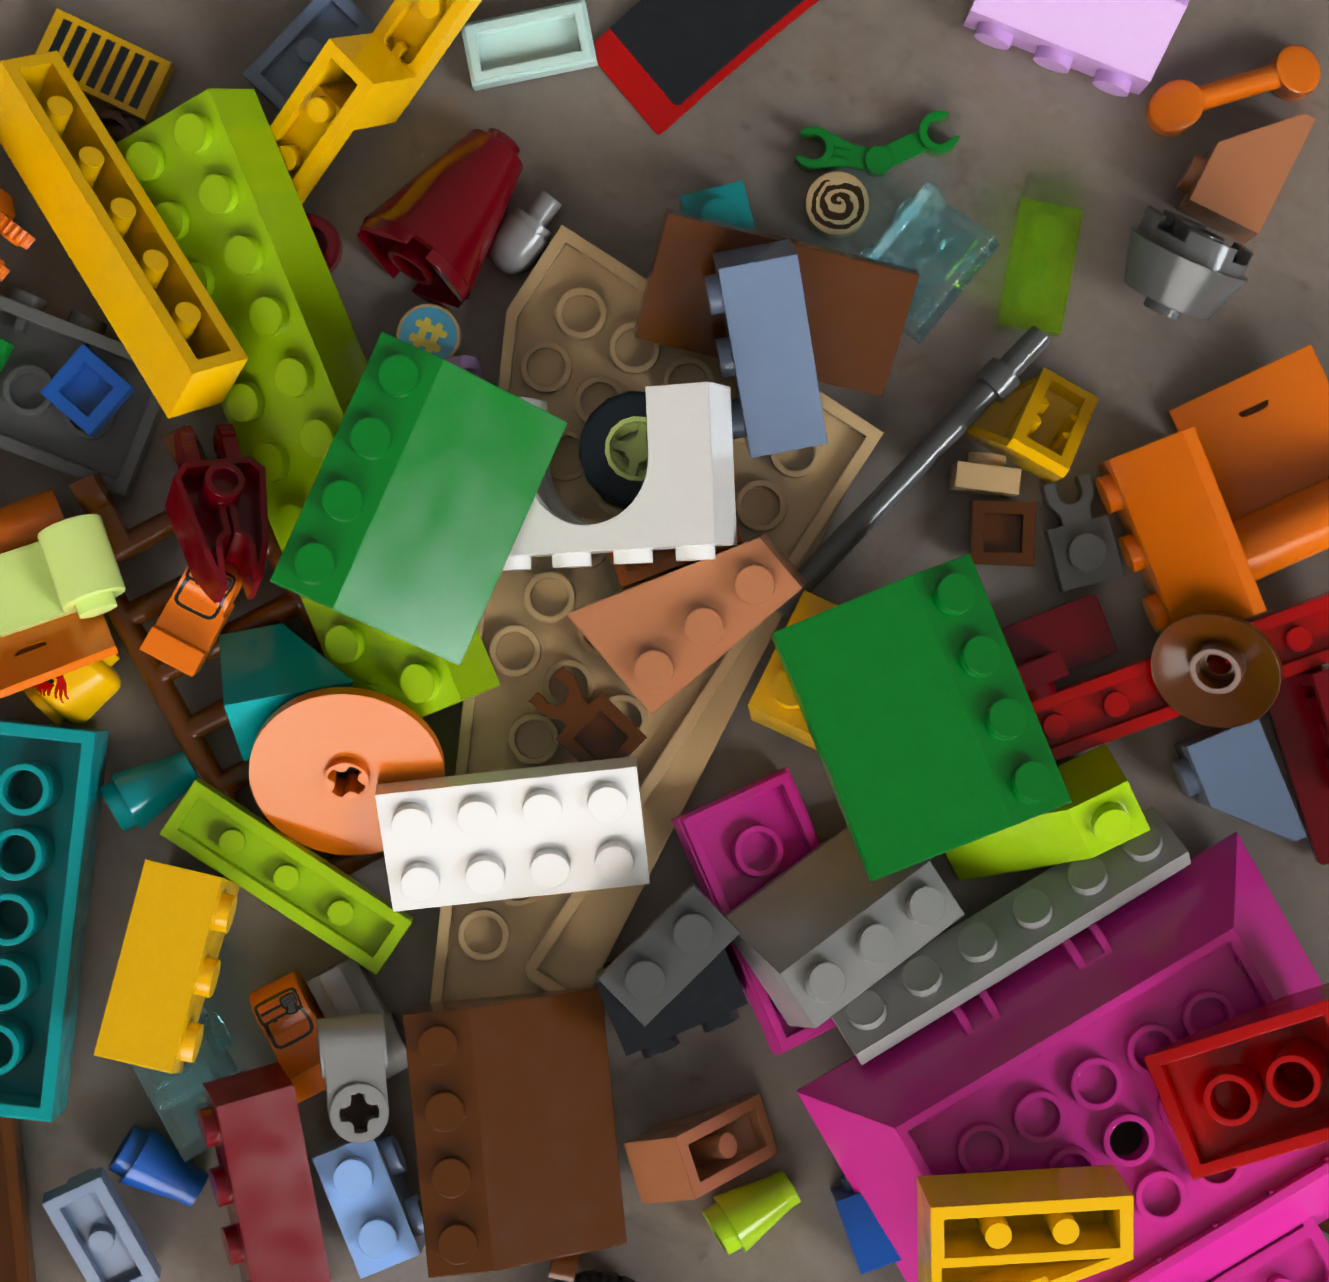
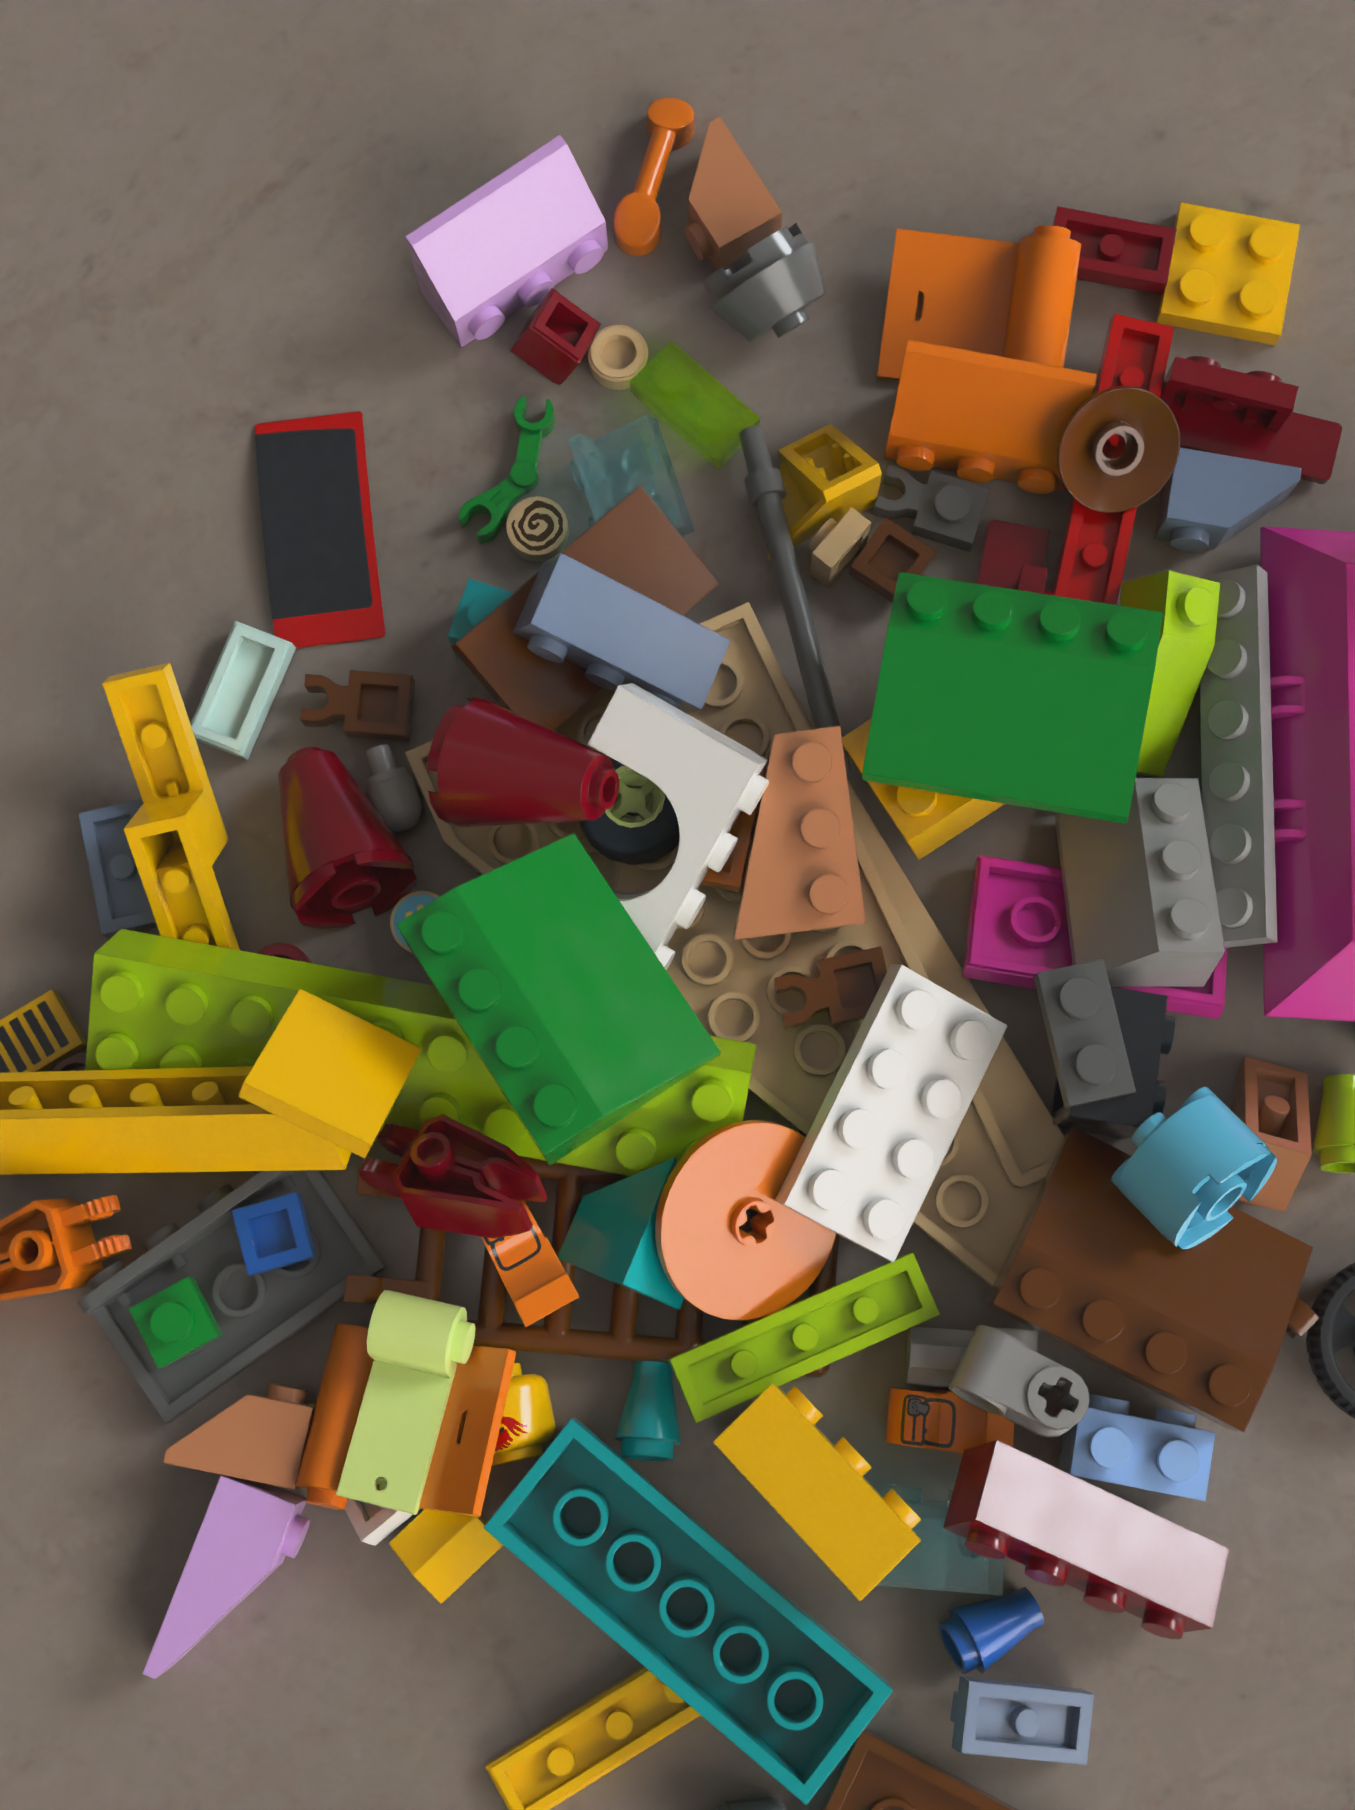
camera: 55 degrees left, 10 degrees down
(230, 358) = (330, 1073): none -> yellow tile
(586, 164) = (371, 705): none -> reddish brown plate
(591, 335) = (514, 770): none -> dark red cone
(618, 1110) = (1193, 1168): none -> medium azure brick
(1022, 105) = (555, 337): none -> dark red slope
(1040, 170) = (617, 356): none -> tan tile

